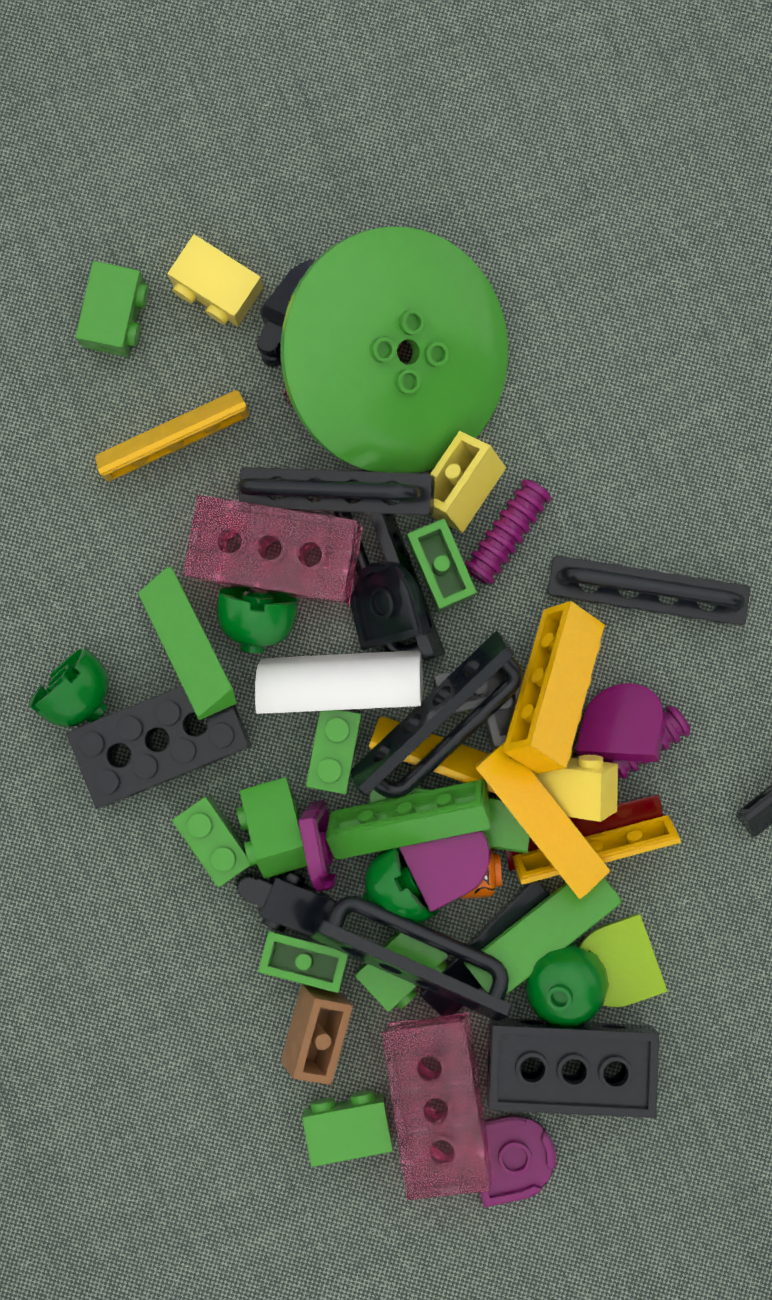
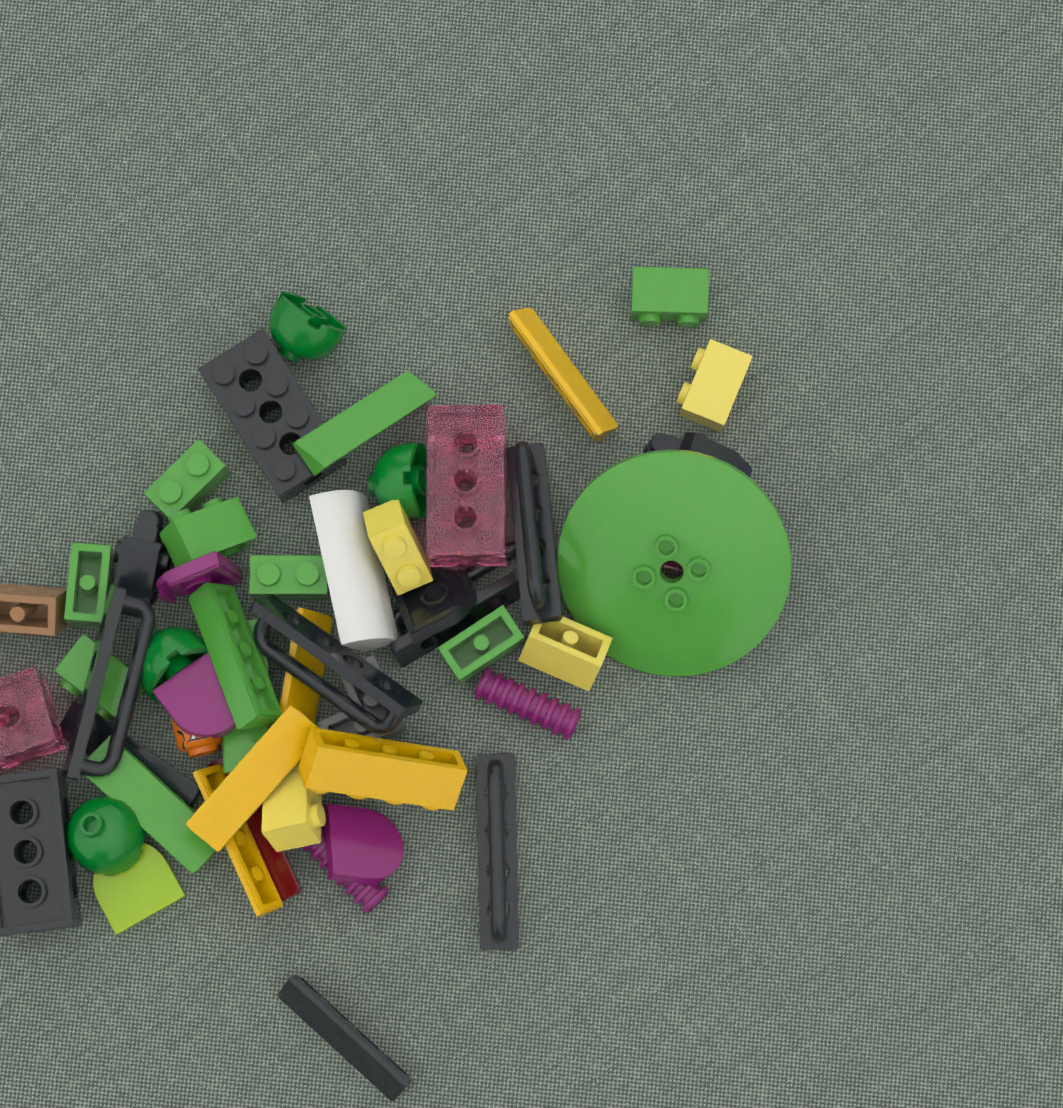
camera: 80 degrees right, 5 degrees down
(324, 632) = (397, 546): none -> light yellow brick

